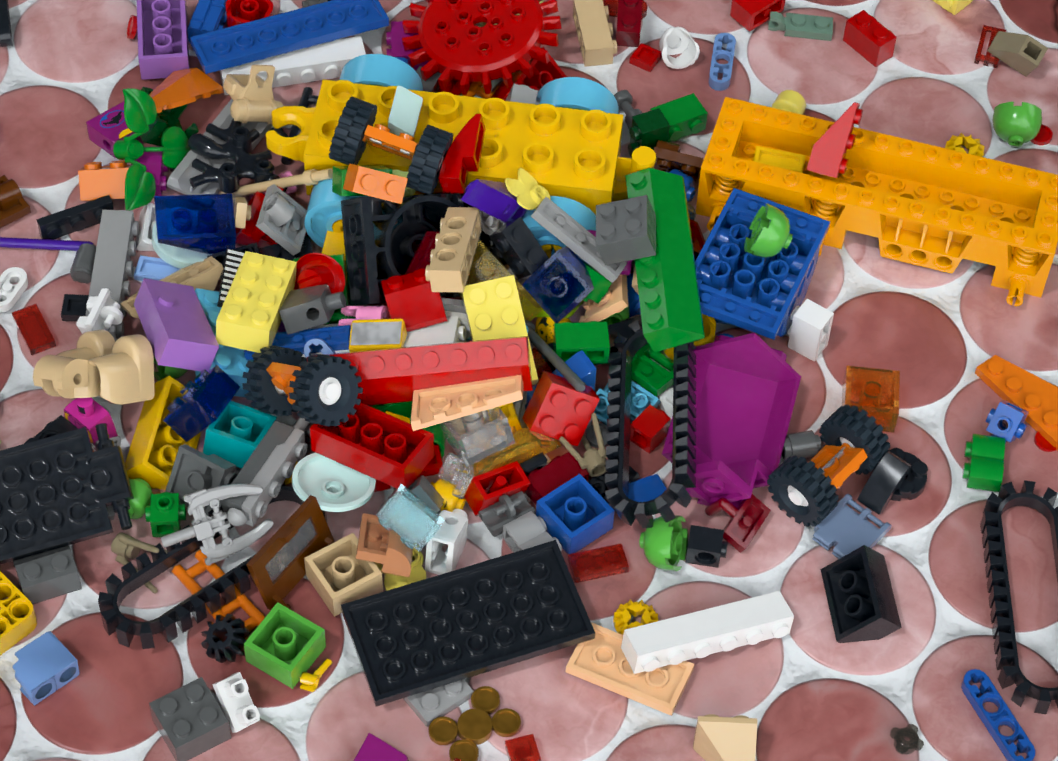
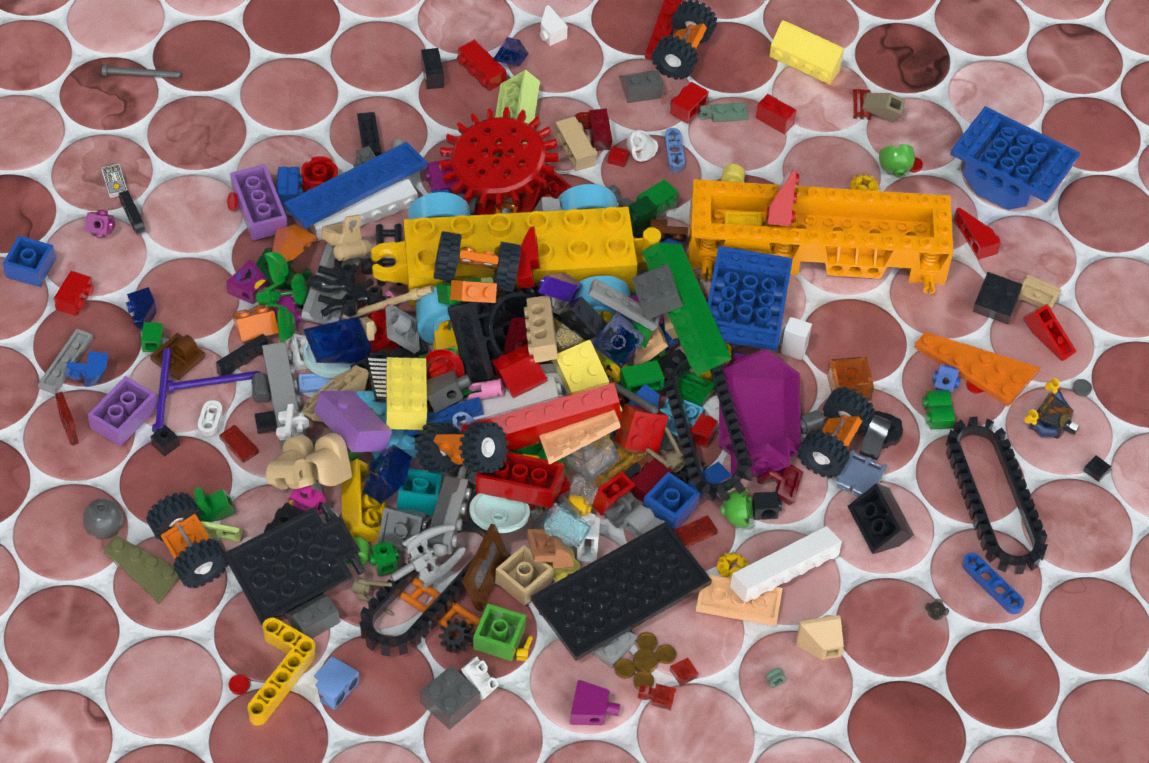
camera: 15 degrees left, 0 degrees up
(377, 334) = (501, 400): flat silver slope -> none
(404, 112) = (476, 234): light aqua slope -> none
(526, 190) = (577, 274): light yellow plate -> none
(769, 232) = (755, 274): bright green cylinder -> none

